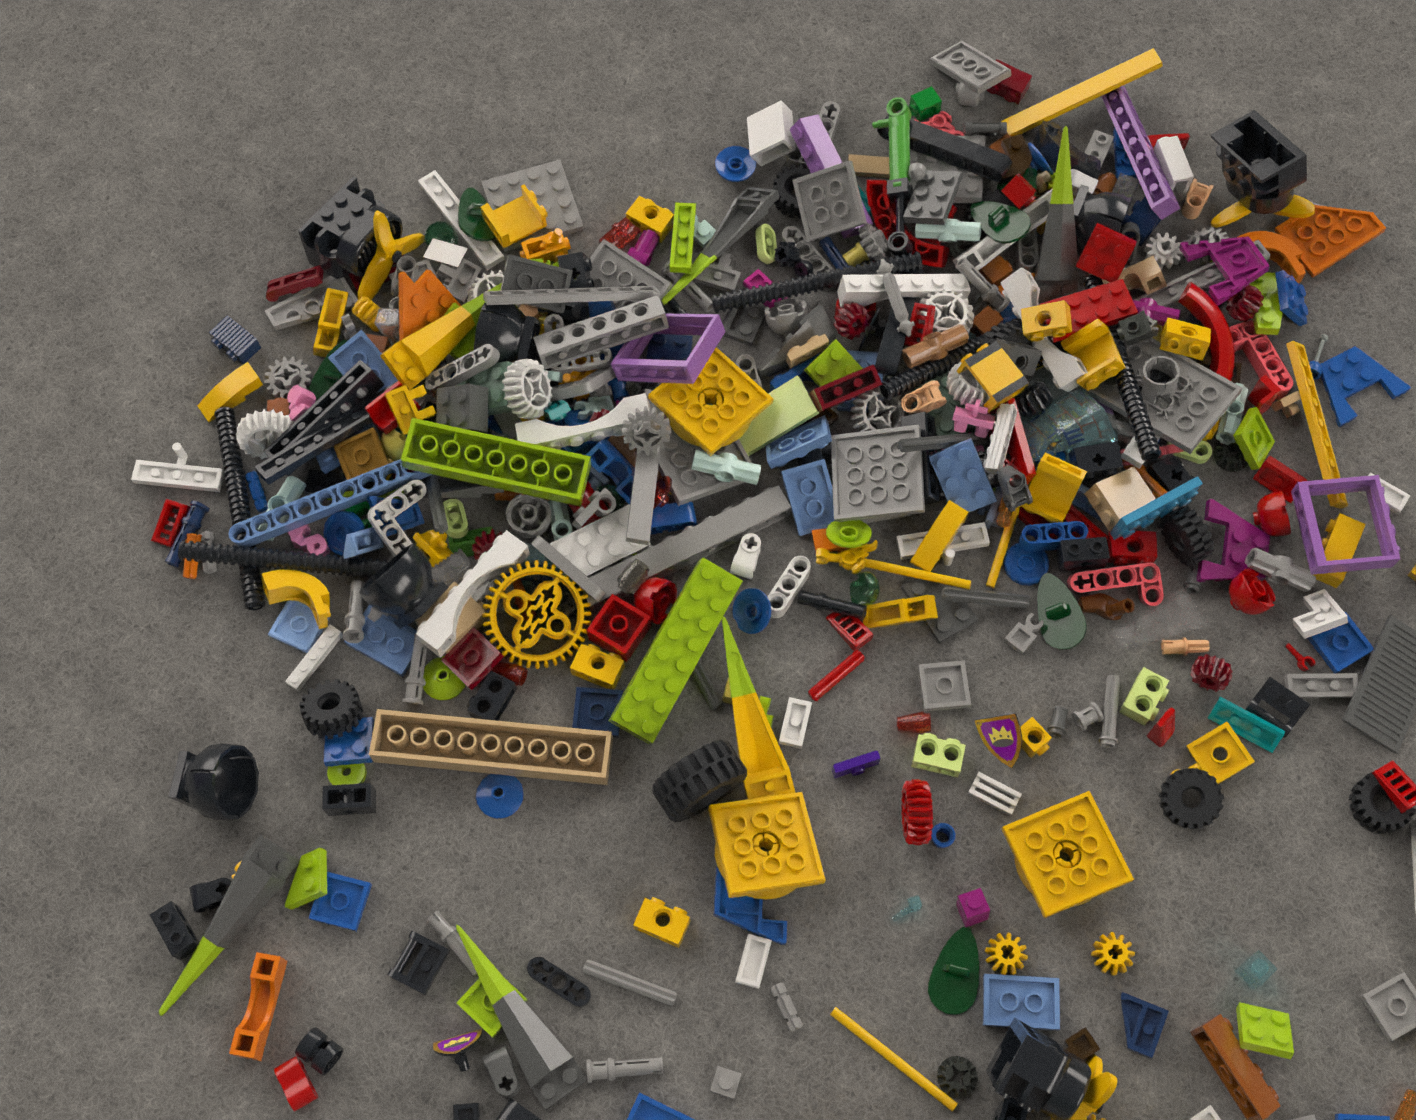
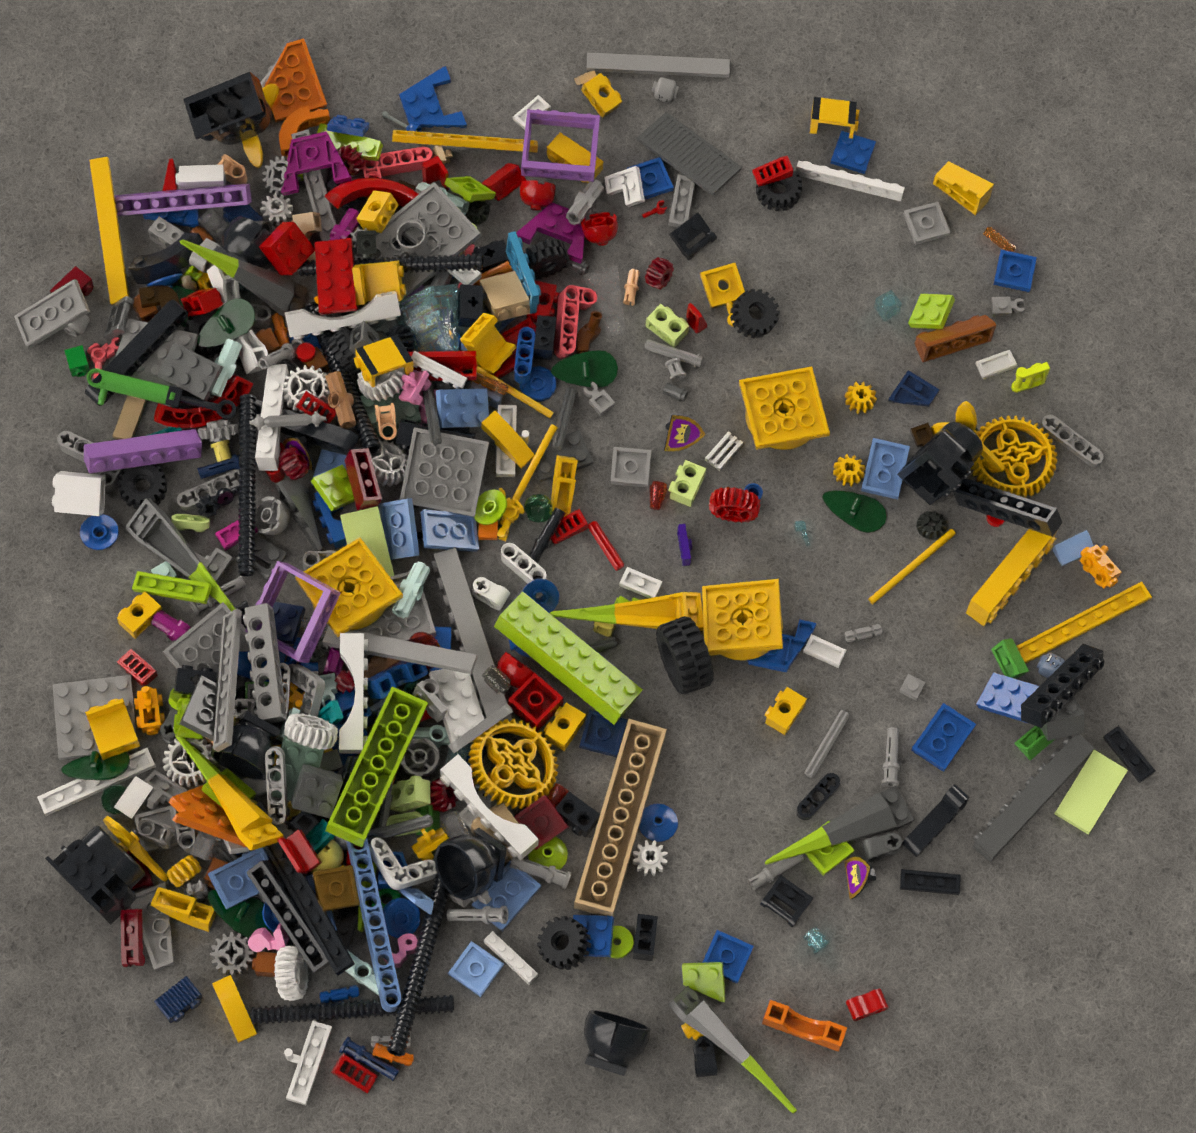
camera: 85 degrees left, 0 degrees up
(175, 930) = (731, 1089): black brick -> none
(301, 587) = (448, 955): yellow arch -> none
(319, 1051) = (847, 981): black wheel -> none
(371, 1006) = (816, 940): none -> clear light blue bush
(404, 408) = (306, 838): yellow plate -> none
(450, 799) = (641, 856): none -> white gear
(485, 513) = (410, 794): none -> yellowish green brick
(589, 244) = (147, 678): none -> red slope
(621, 233) = (152, 642): clear red hips -> none
(656, 430) = (376, 638): light grey gear -> none
(802, 353) = (316, 511): tan plate -> none
(829, 201) = (174, 455): light grey plate -> none
(916, 171) = (164, 377): light grey hinge -> none
(973, 907) = (811, 484): magenta brick -> none
(991, 308) = (305, 352): none -> red tile
(1016, 491) = (483, 370): dark grey piece -> none
(1033, 728) = (687, 405): yellow brick -> none
(1035, 316) = (336, 316): yellow brick -> none
(1246, 724) = (702, 261): teal plate -> none

